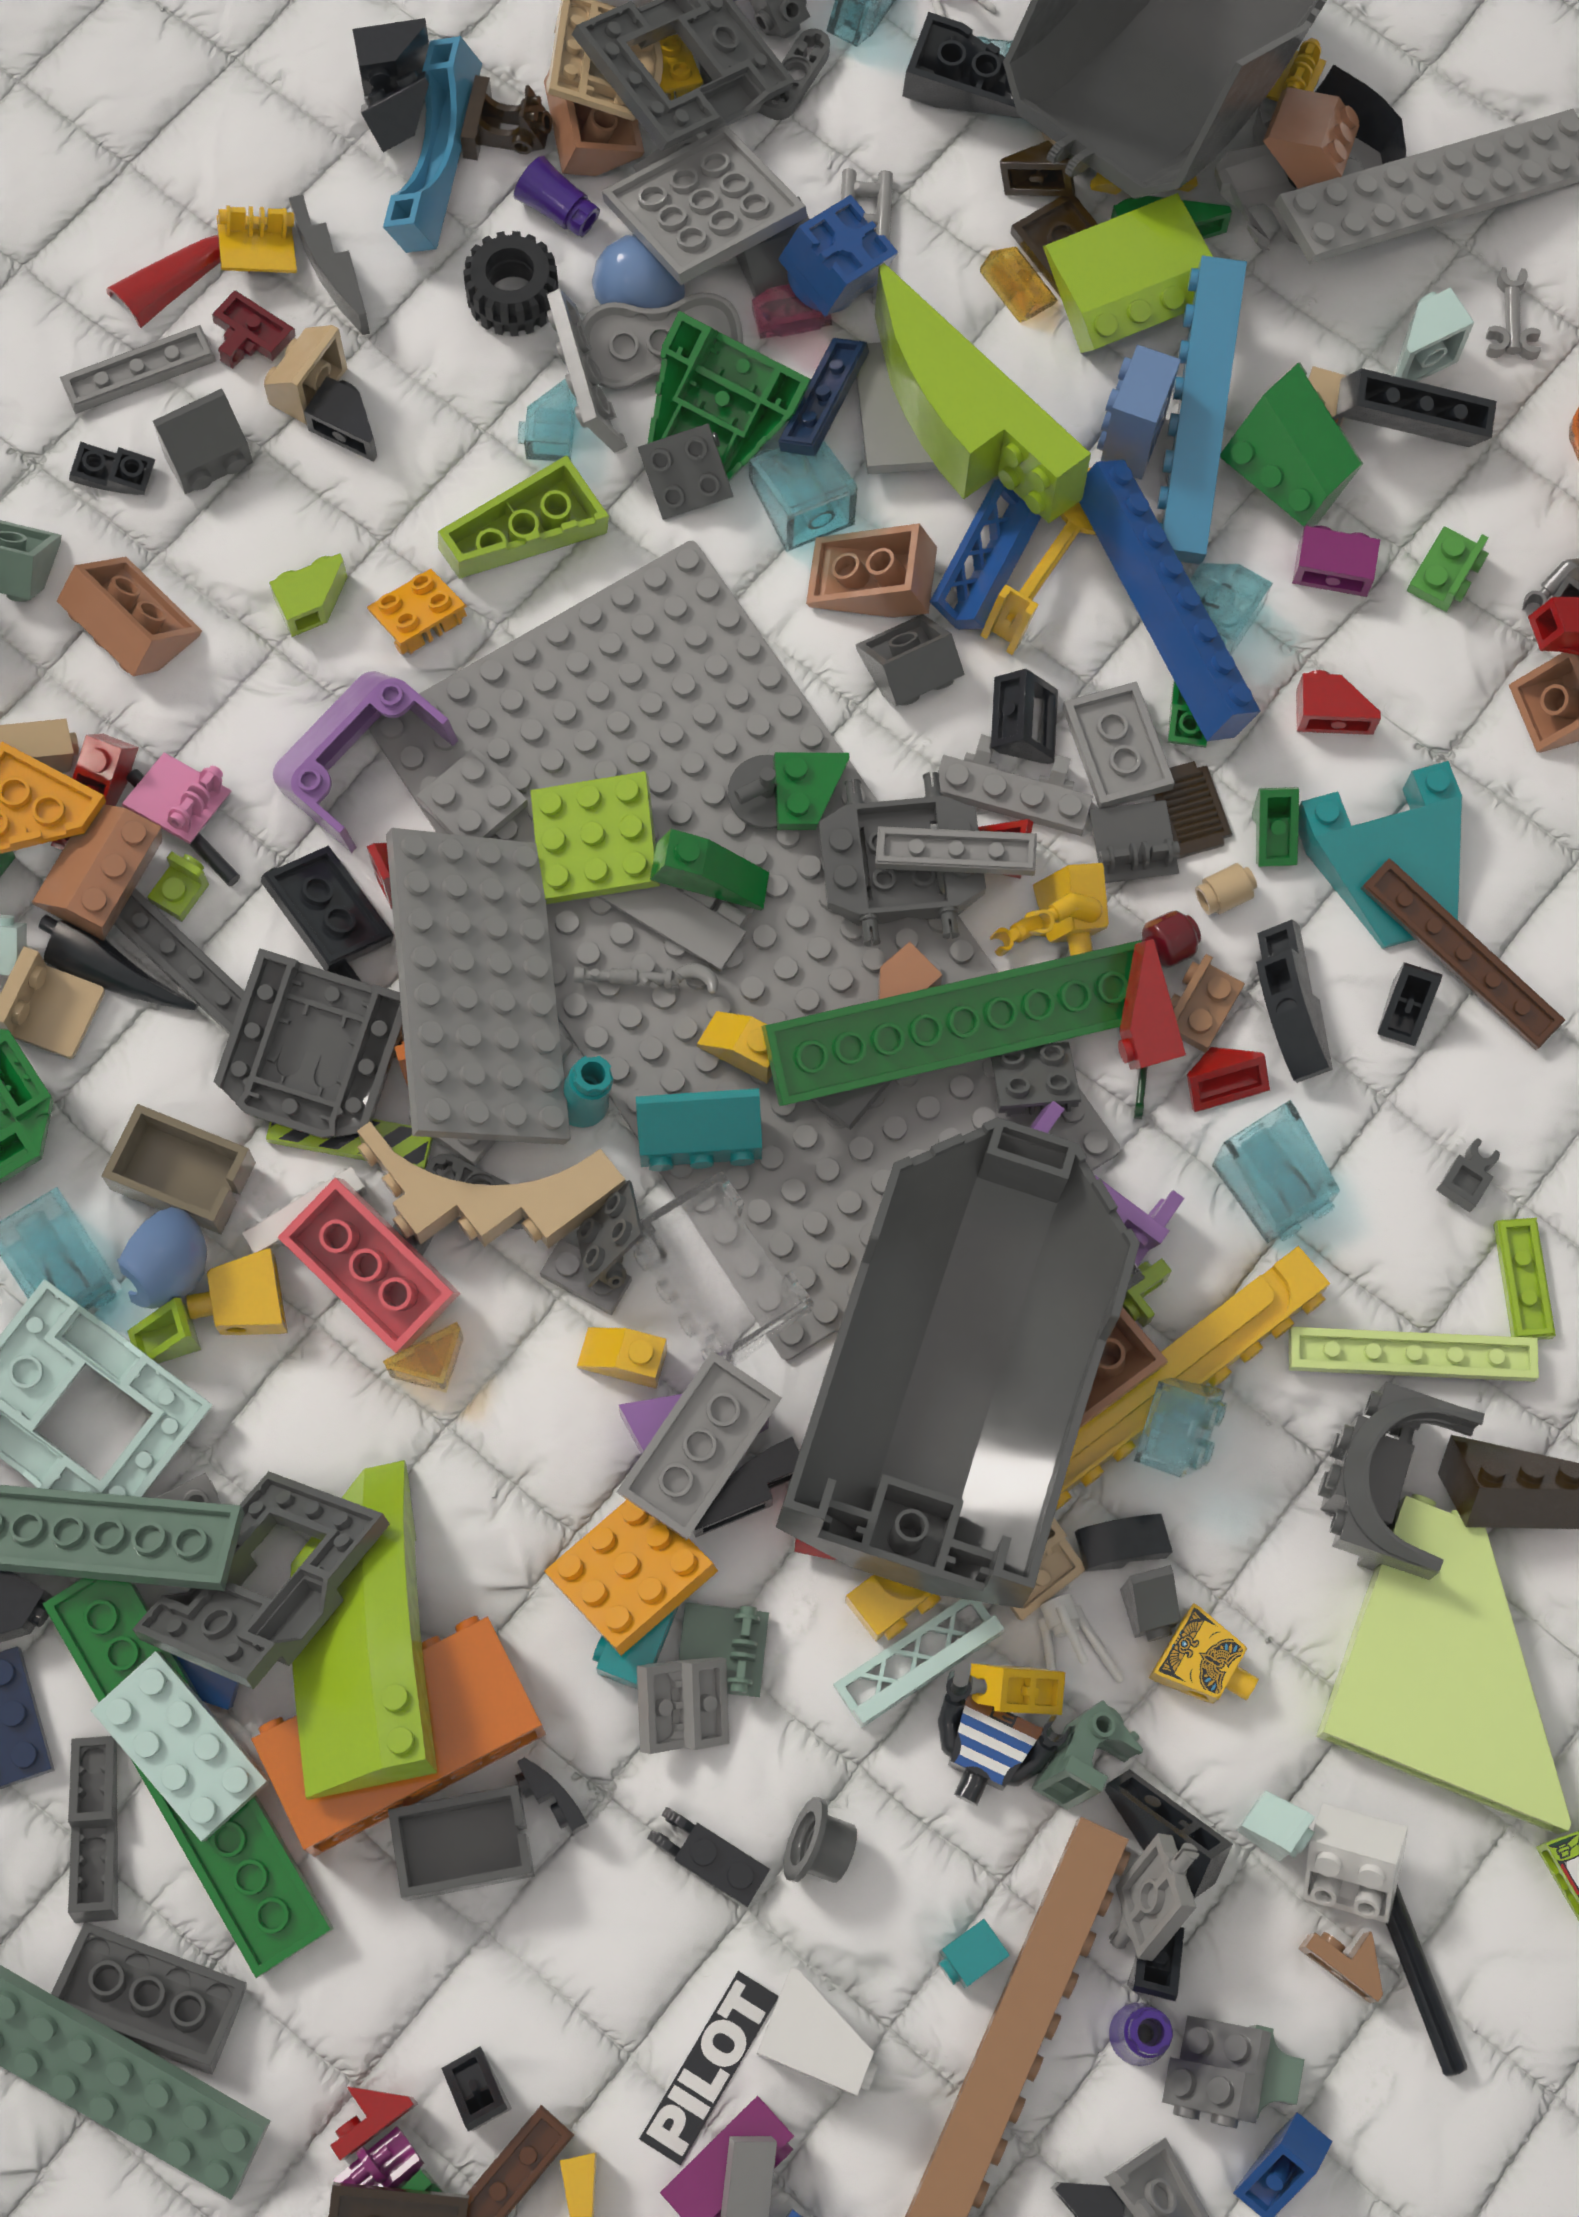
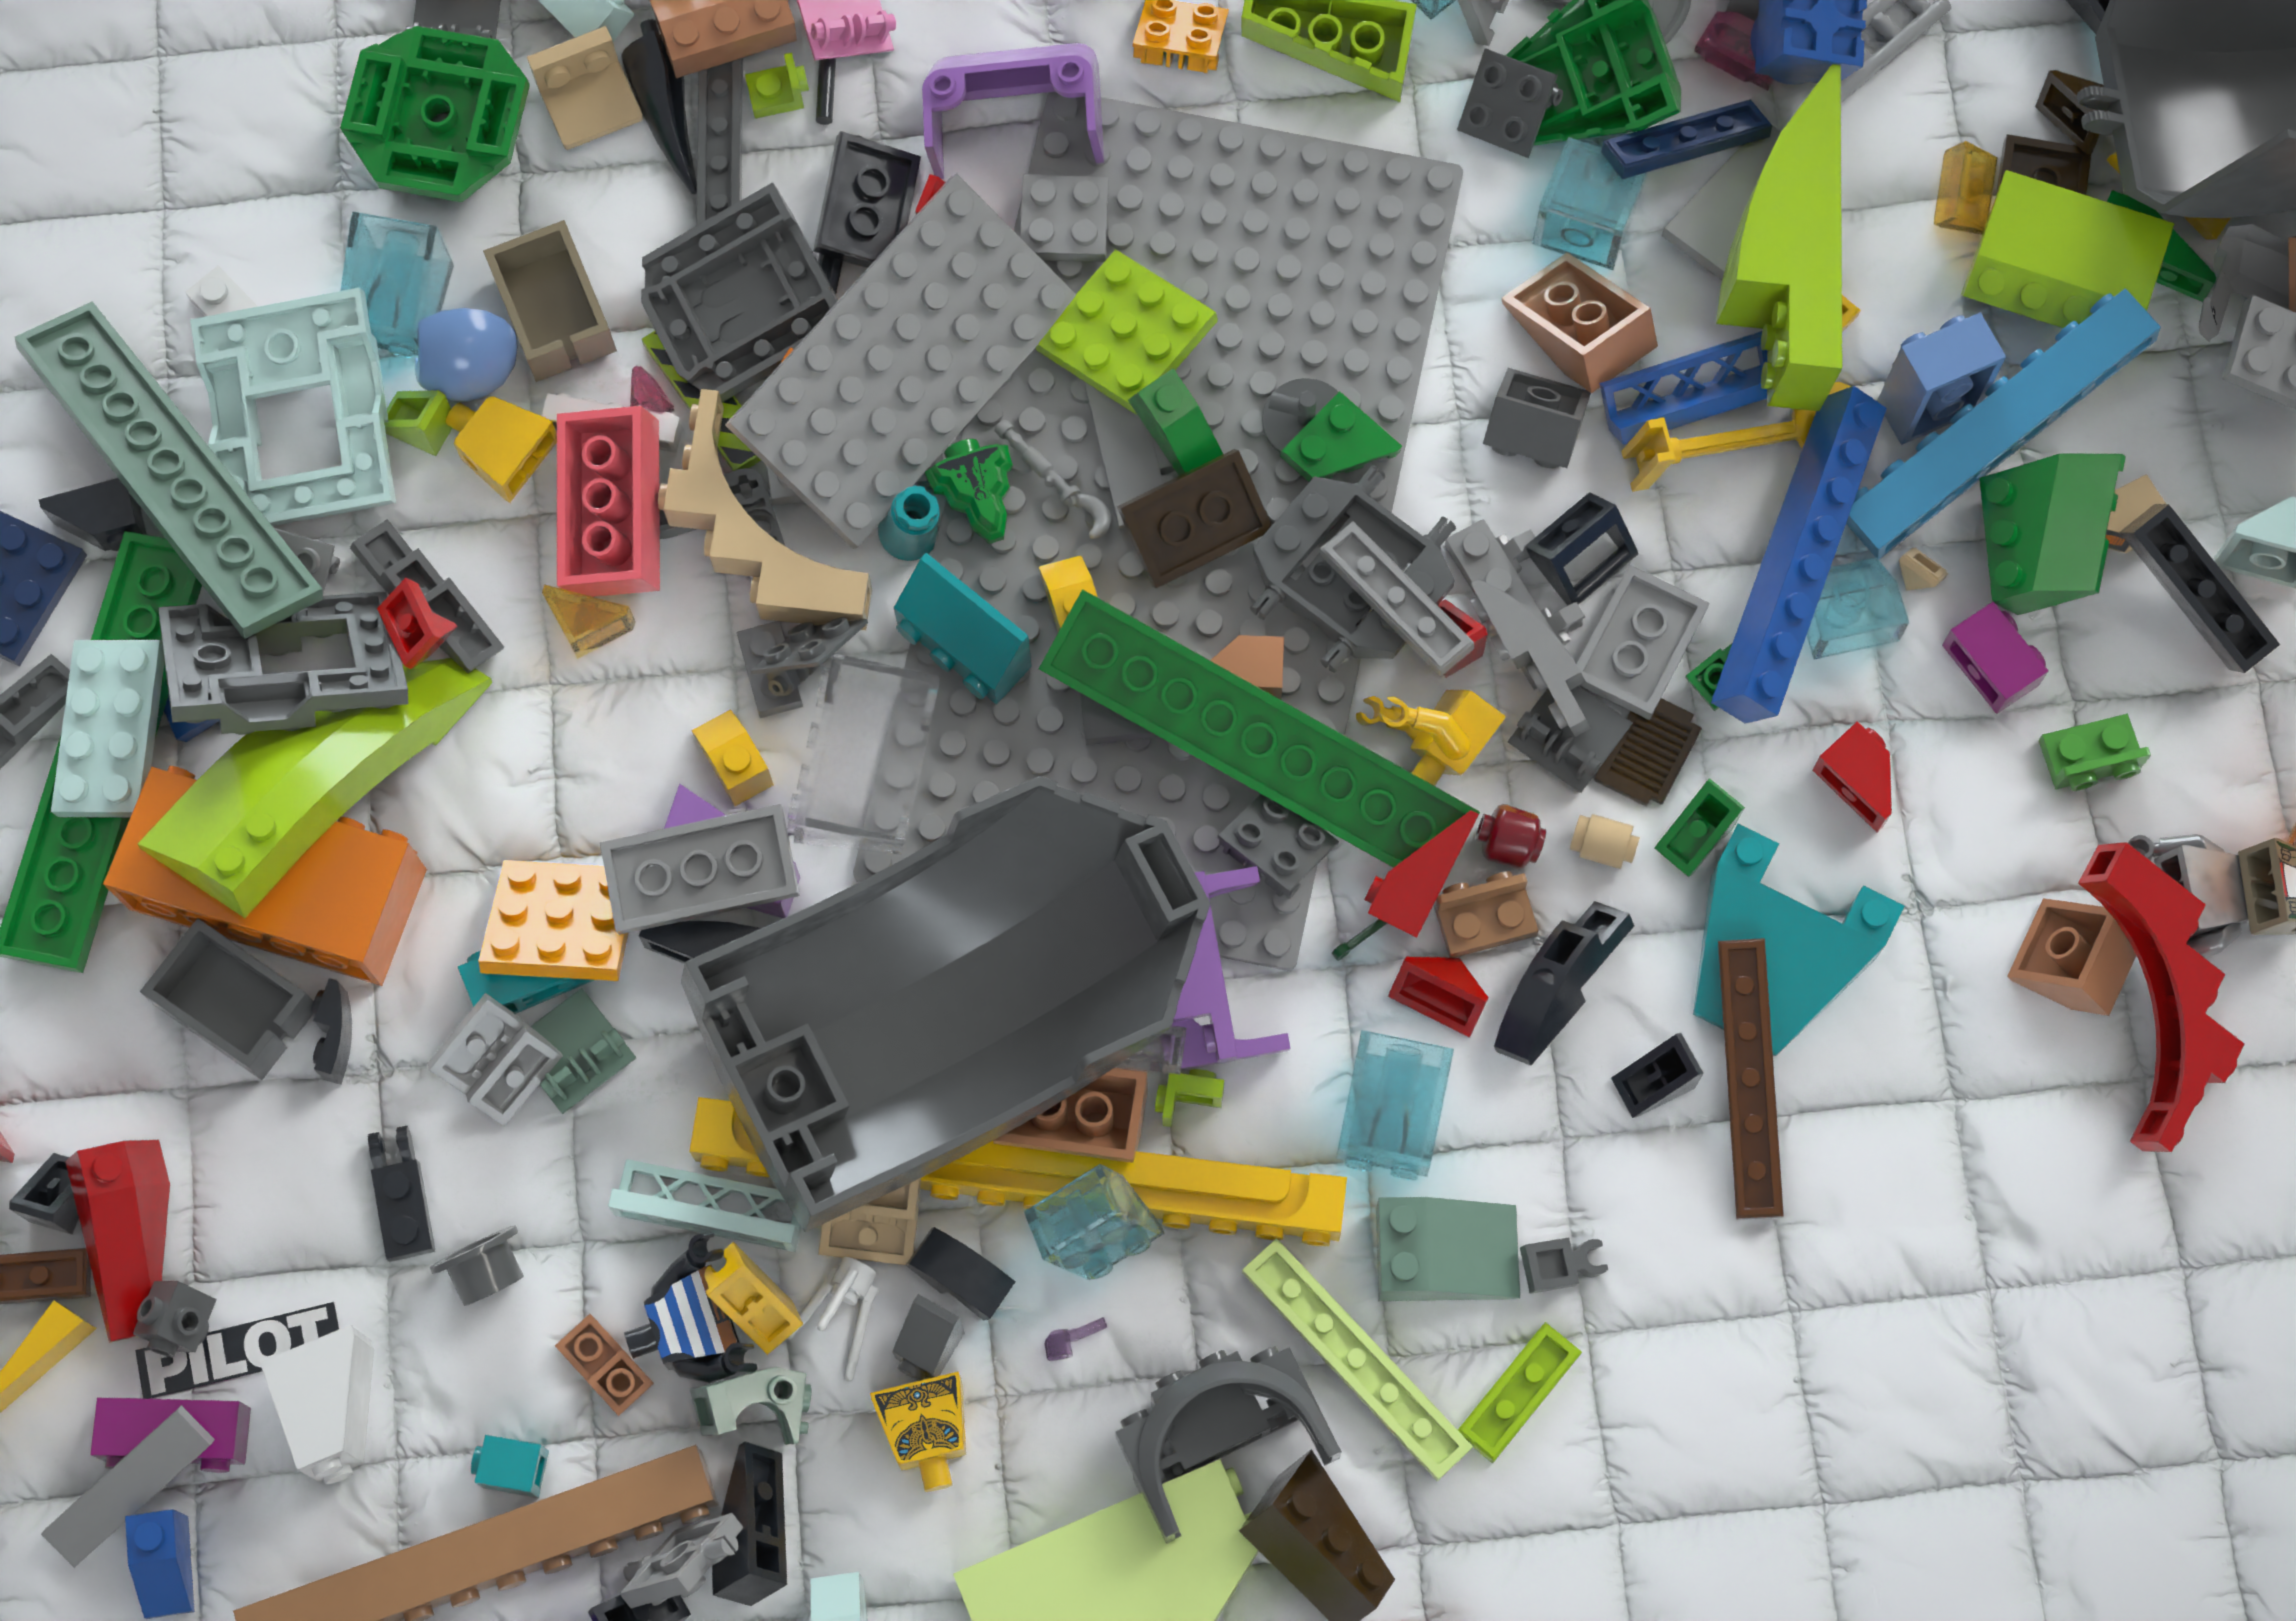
camera: 50 degrees right, 0 degrees up
(302, 1448) = (392, 560): none -> dark grey slope
(310, 1170) = (648, 392): none -> clear pink slope
(326, 1470) = (412, 623): none -> red slope
(547, 2064) = (123, 1219): none -> red wedge
(602, 1028) = (975, 484): none -> green rock
(651, 2088) = (174, 1318): none -> dark grey brick
(771, 918) = (1195, 518): none -> dark brown plate
(959, 1828) = (604, 1364): none -> nougat slope
(1053, 802) = (1529, 639): none -> light grey slope
(1228, 1526) = (1059, 1341): none -> clear purple hand
(1238, 547) = (1920, 570): none -> tan slope
(1393, 1236) = (1446, 1250): none -> sand green slope

